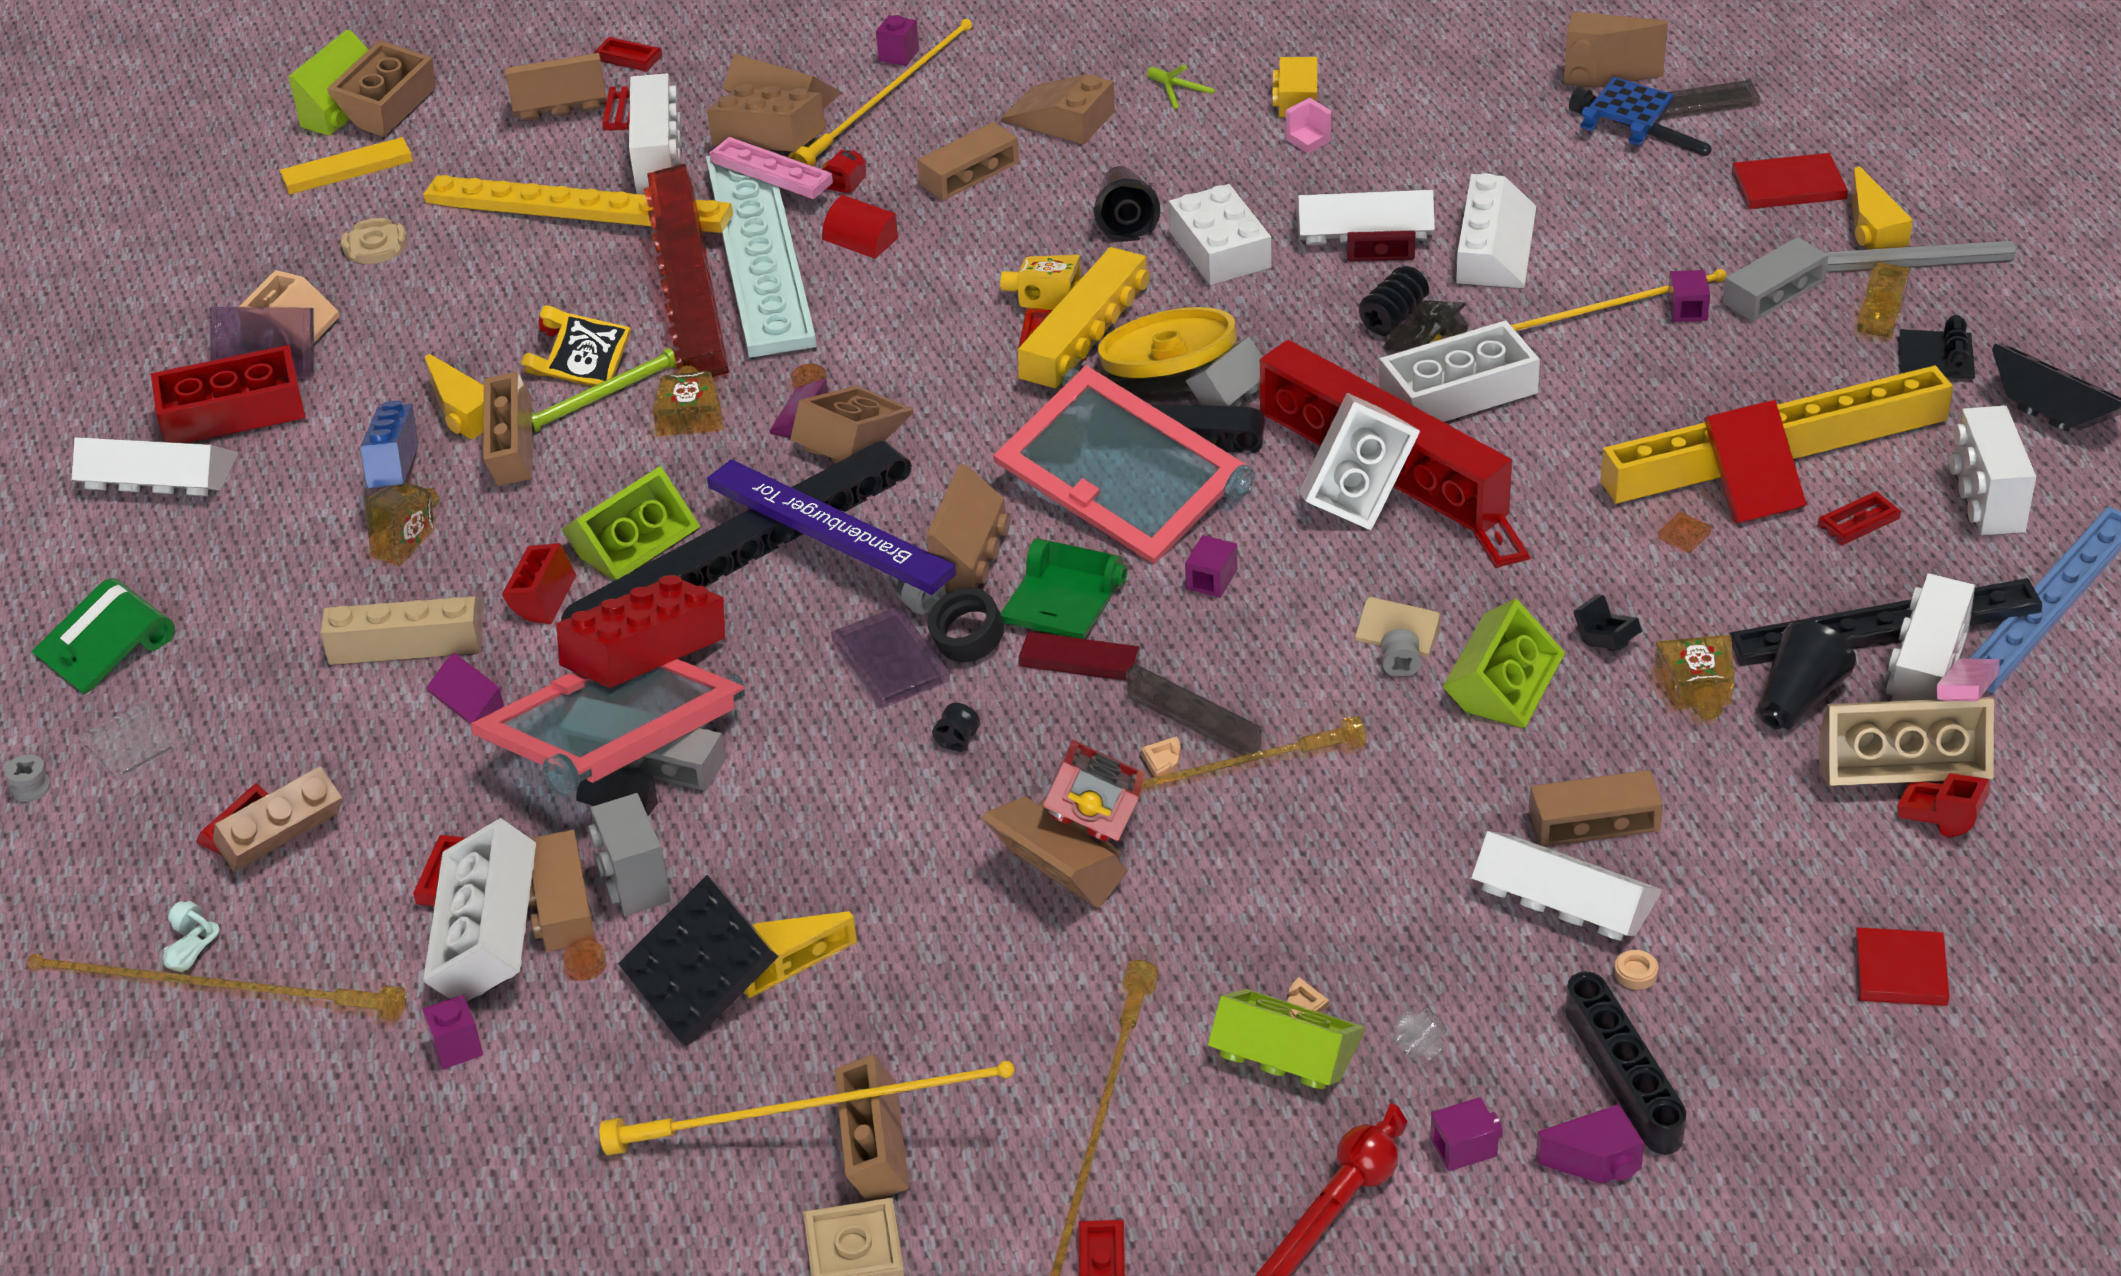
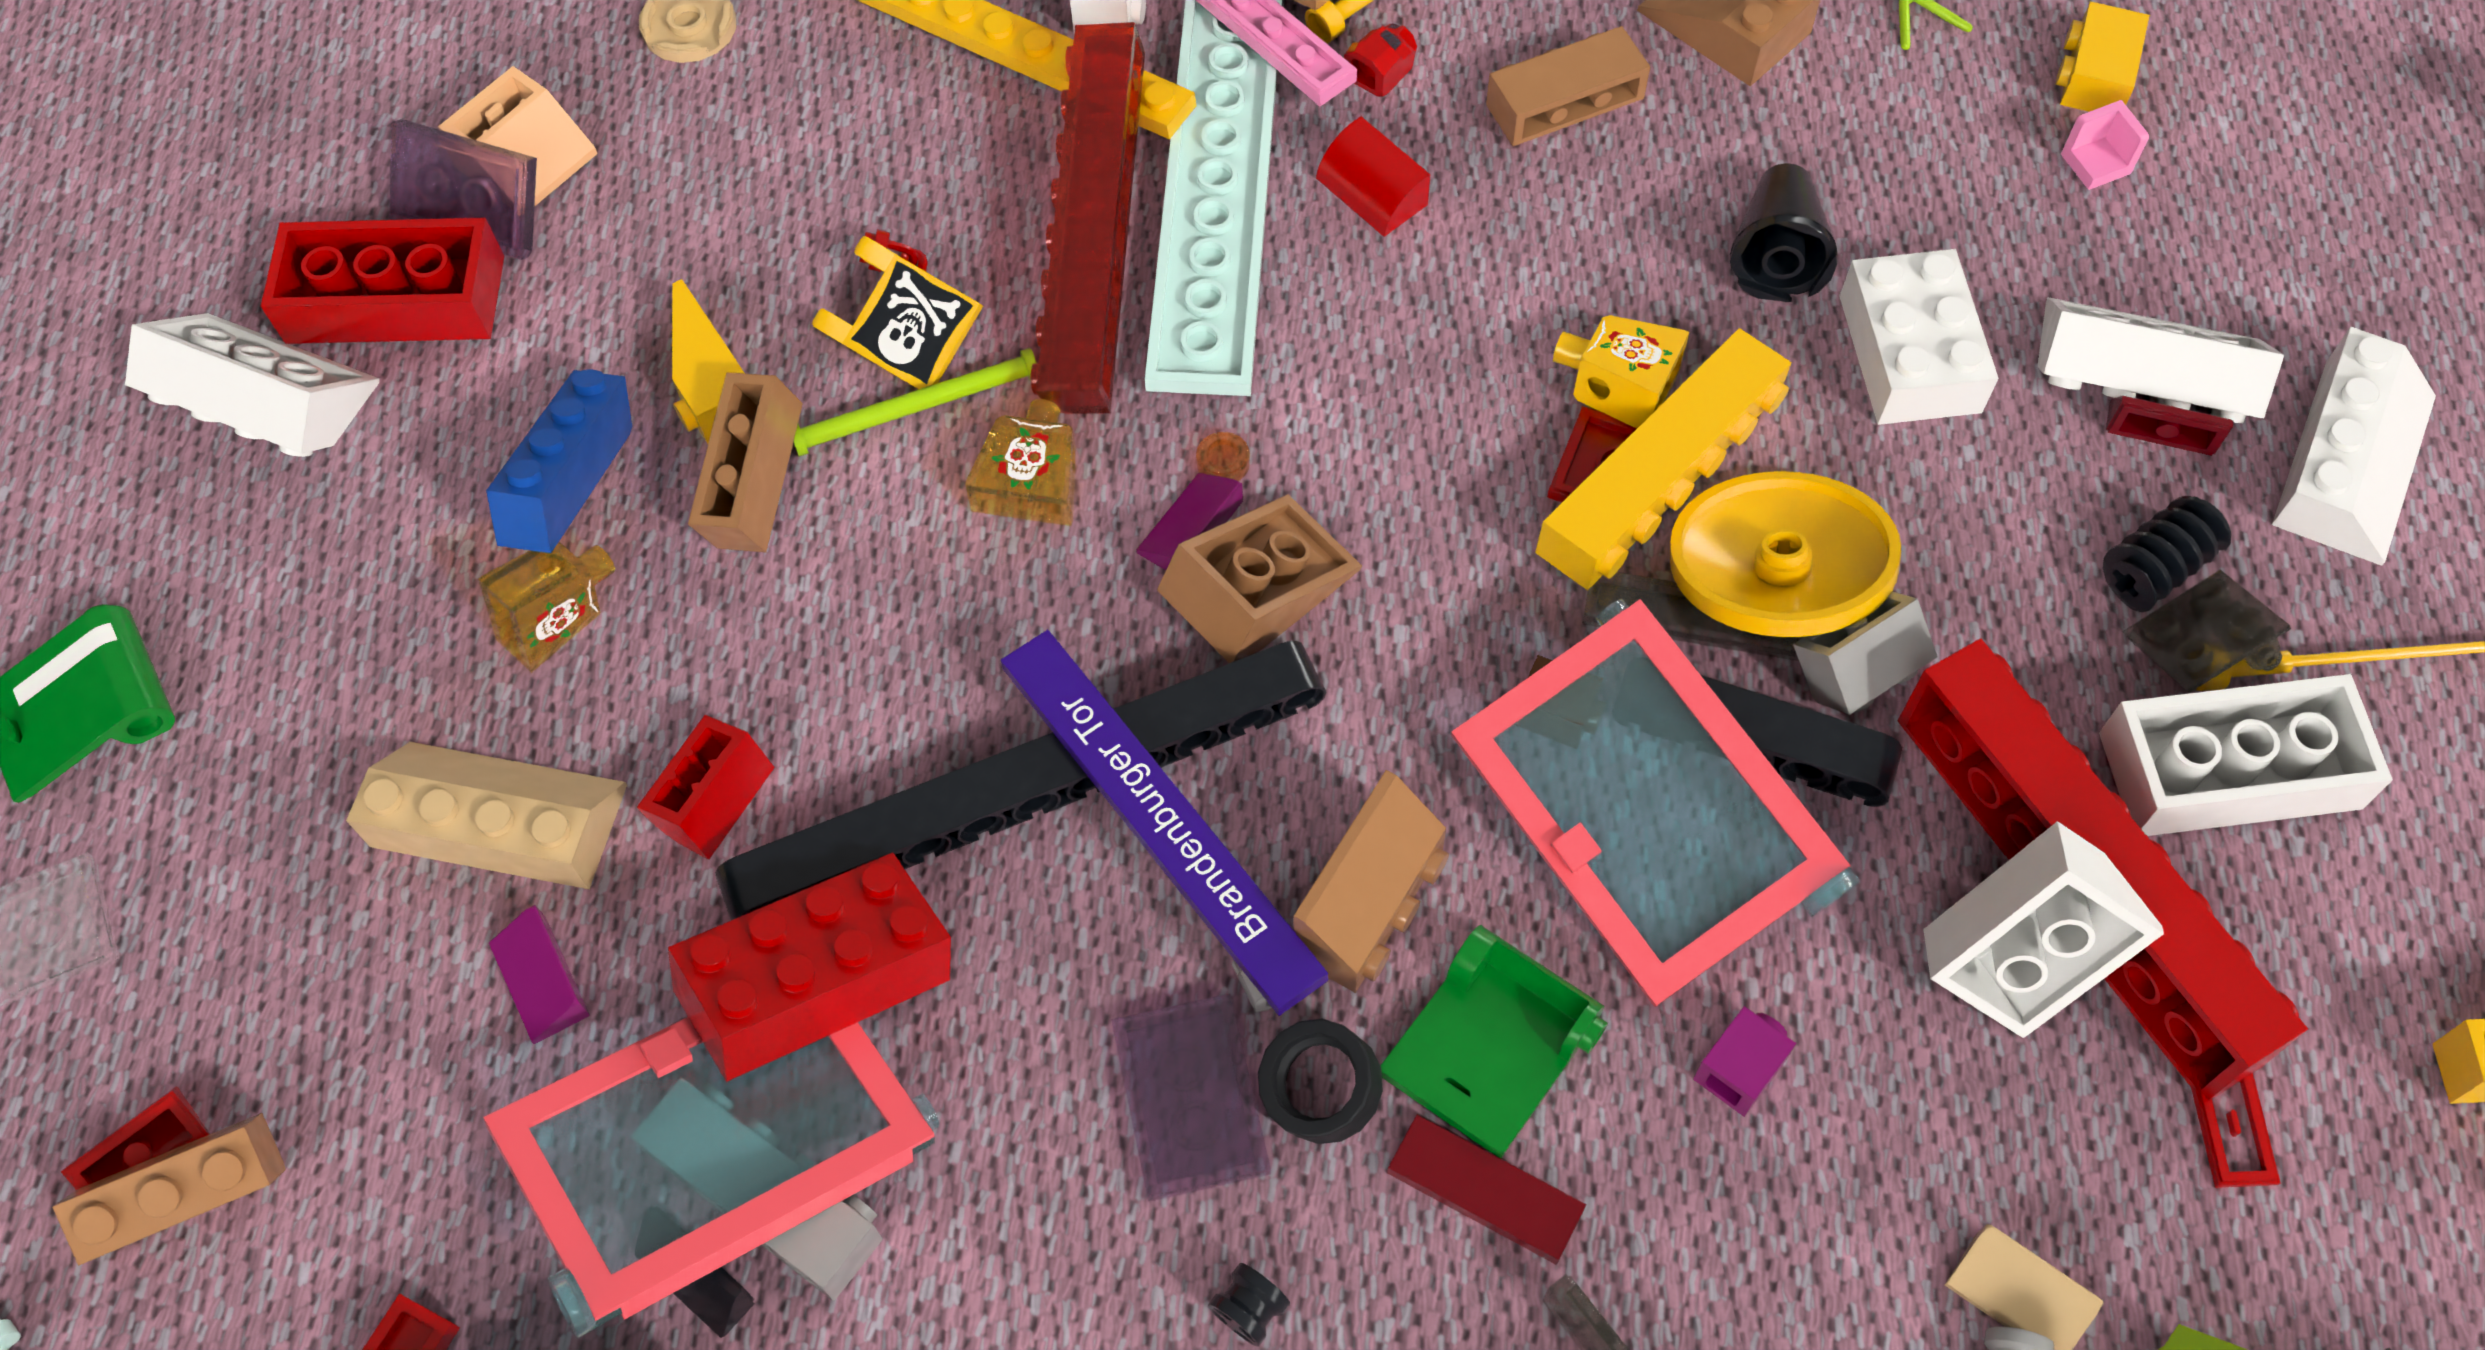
camera: 15 degrees right, 20 degrees up
(632, 526) = (875, 703): lime slope -> none

